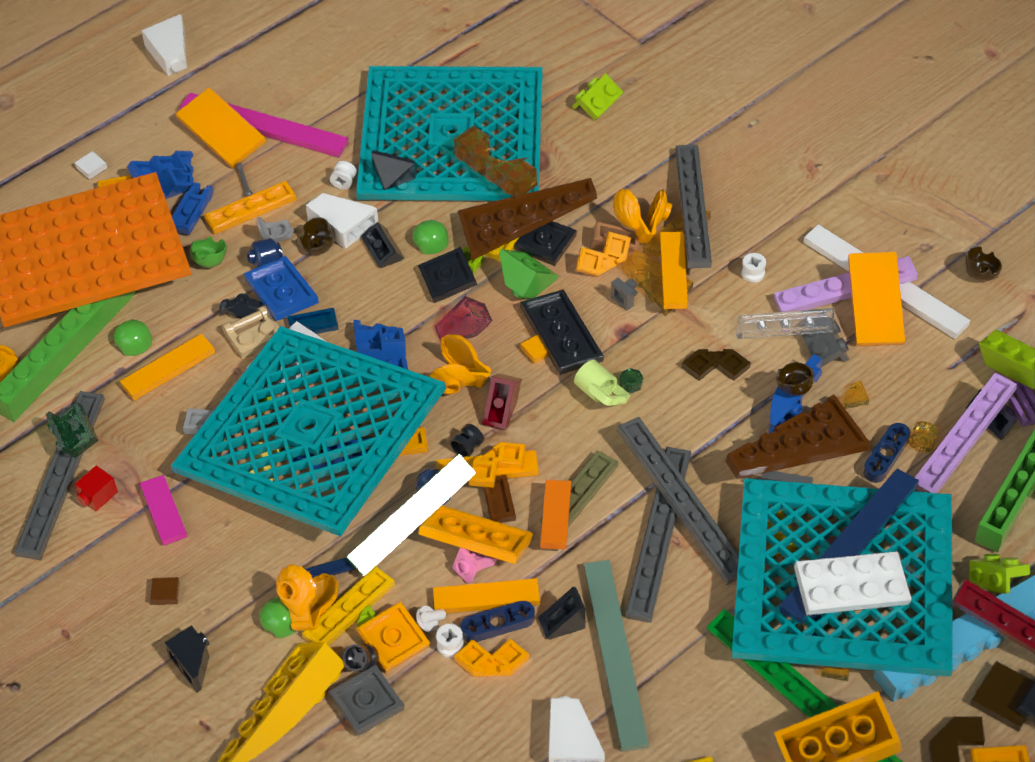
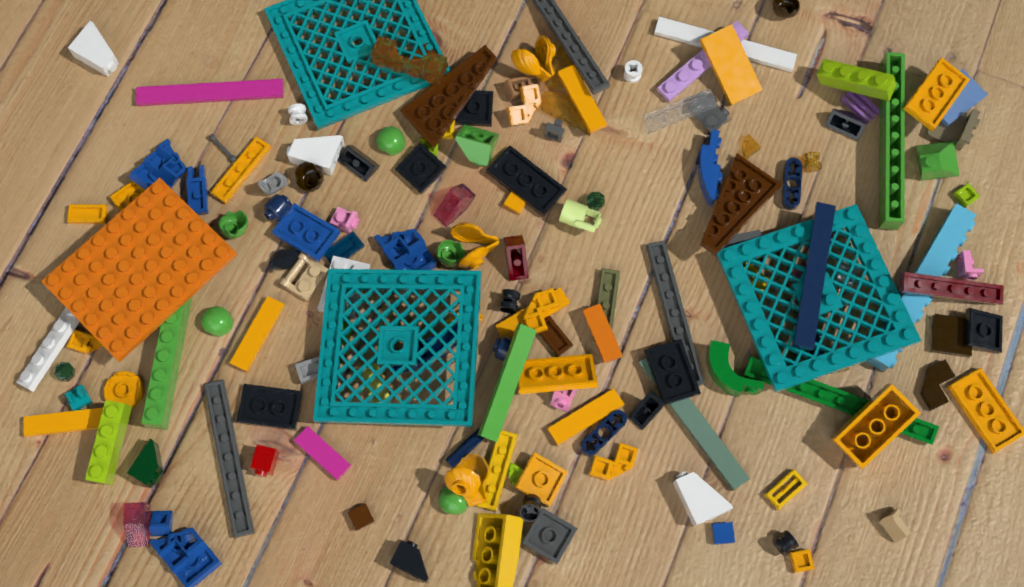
camera: 30 degrees left, 20 degrees up
(59, 187) = (87, 214): none -> light orange tile
(72, 430) = (221, 423): clear green bracket -> none
(90, 165) = (95, 183): white tile -> none
(136, 442) = (269, 407): none -> black tile
(220, 127) = (179, 110): light orange tile -> none
(332, 294) = (345, 220): none -> bright pink bracket
(392, 169) = (335, 97): black slope -> none
(426, 362) = (450, 253): none -> bright green hair
(428, 618) = (556, 453): white plate -> none
(449, 647) = (581, 467): white wheel -> none
(617, 588) = (672, 372): none -> black tile
(681, 498) = (678, 282): dark grey tile -> none
(685, 630) = (724, 376): none -> green arch
(726, 361) = (650, 155): dark brown tile -> none
(795, 379) = (714, 157): dark brown hair -> none
(852, 583) = (832, 306): white plate -> none
(965, 434) = (839, 151): lavender plate -> none
(995, 573) = (909, 249): lime bracket -> none

